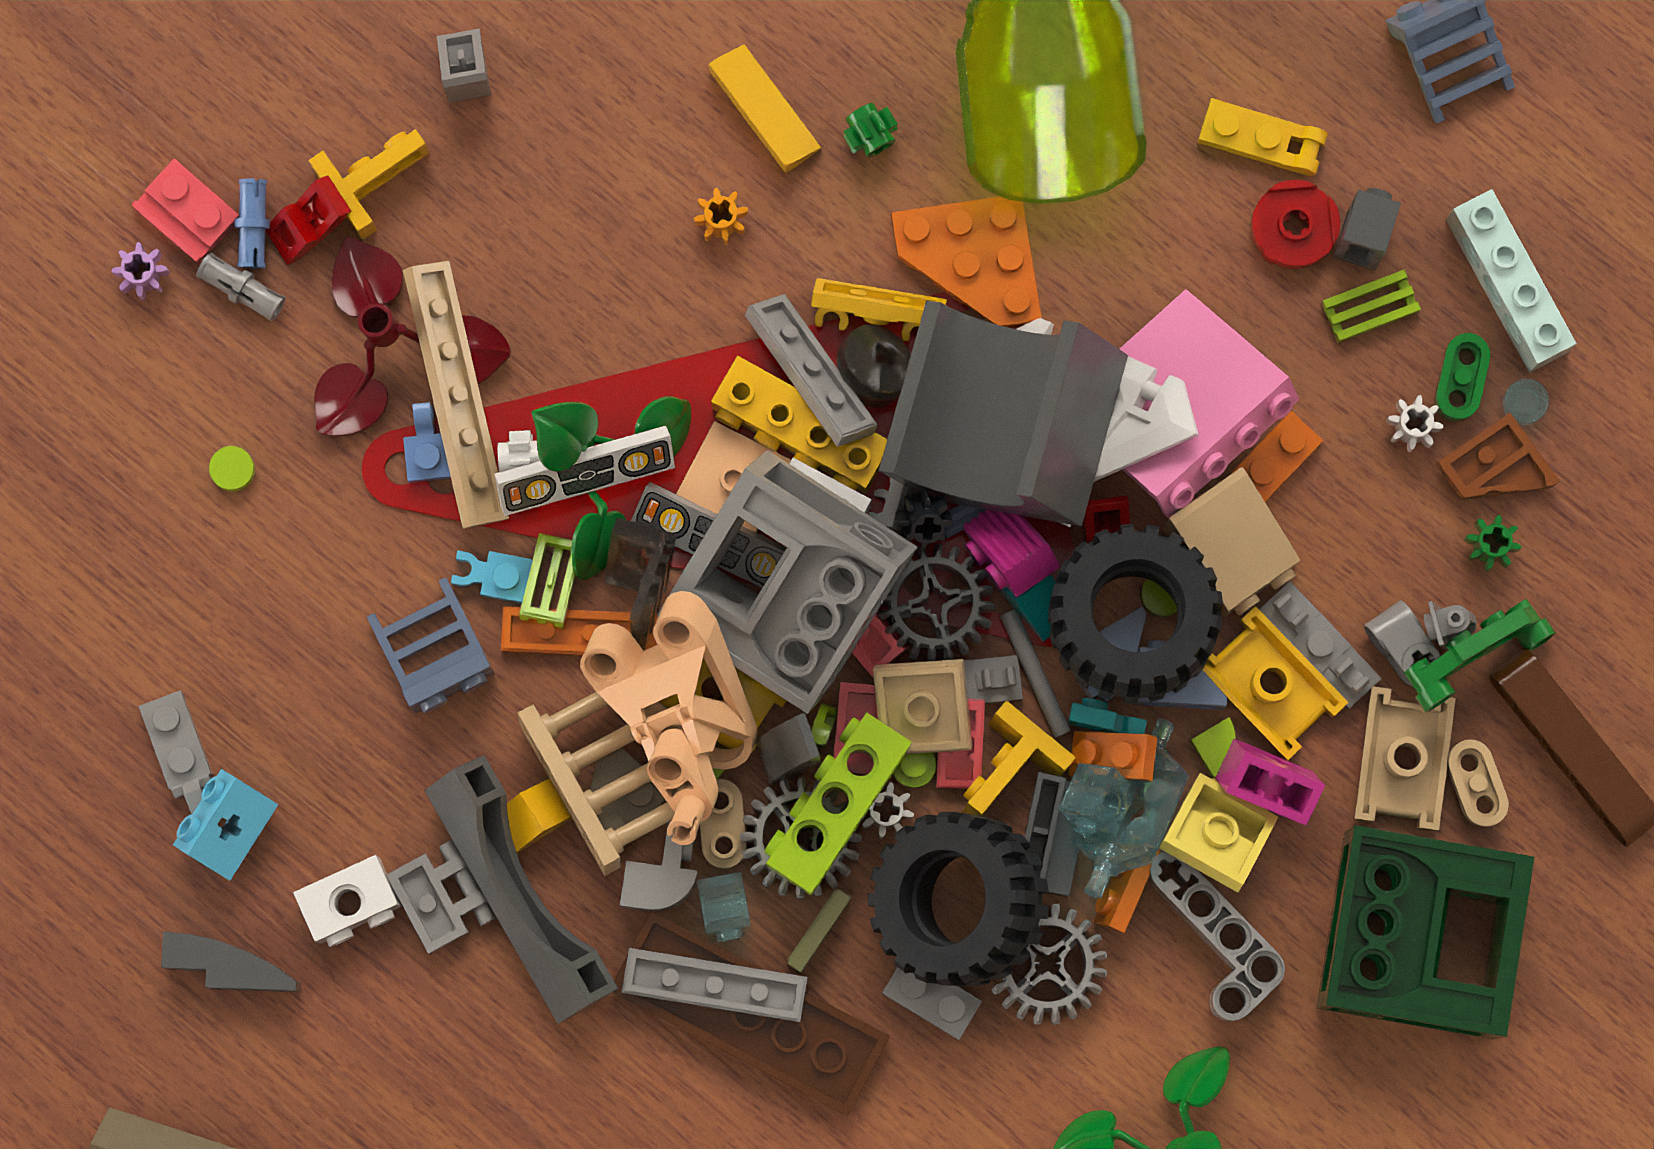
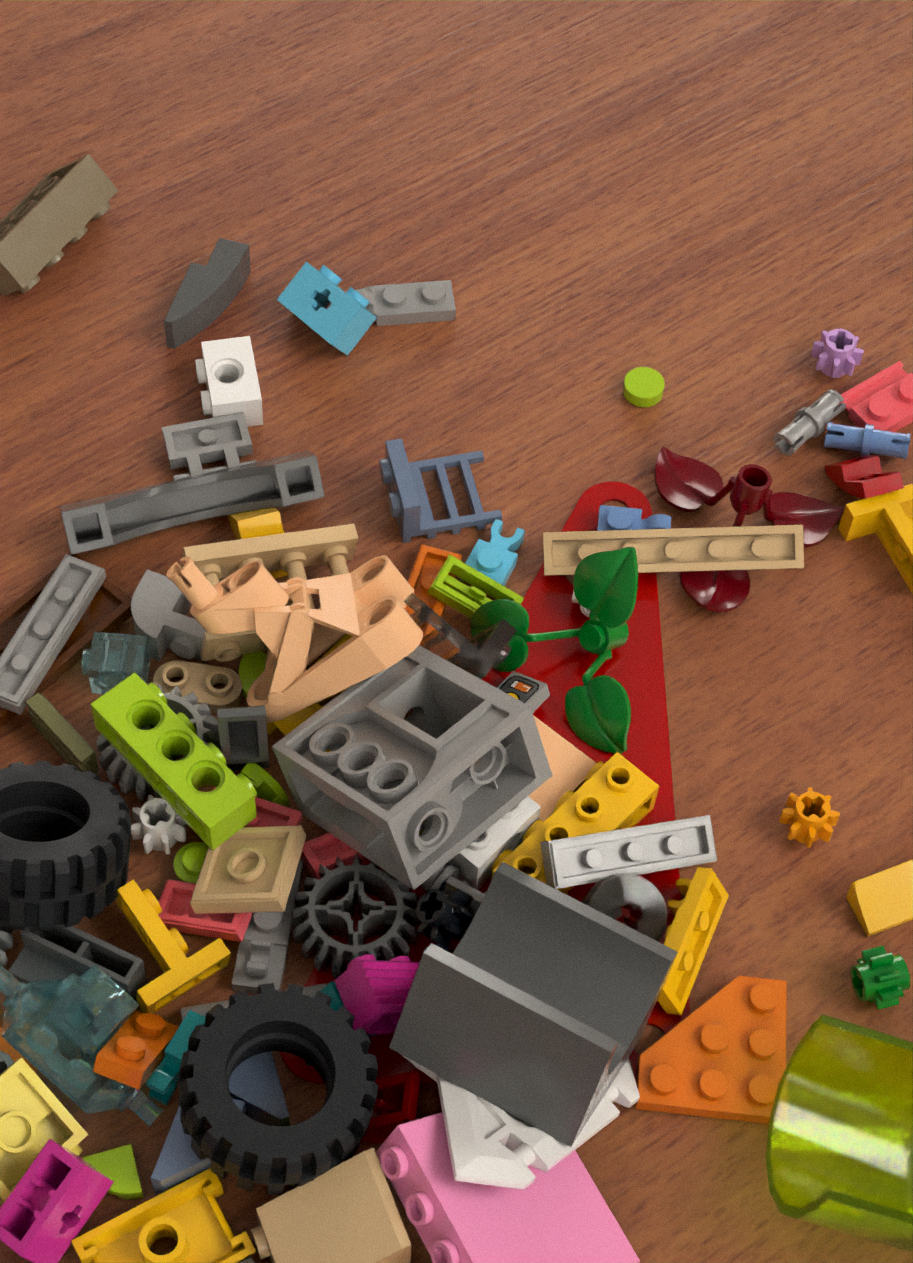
camera: 100 degrees right, 25 degrees down
(595, 469) = (570, 629): tile -> none

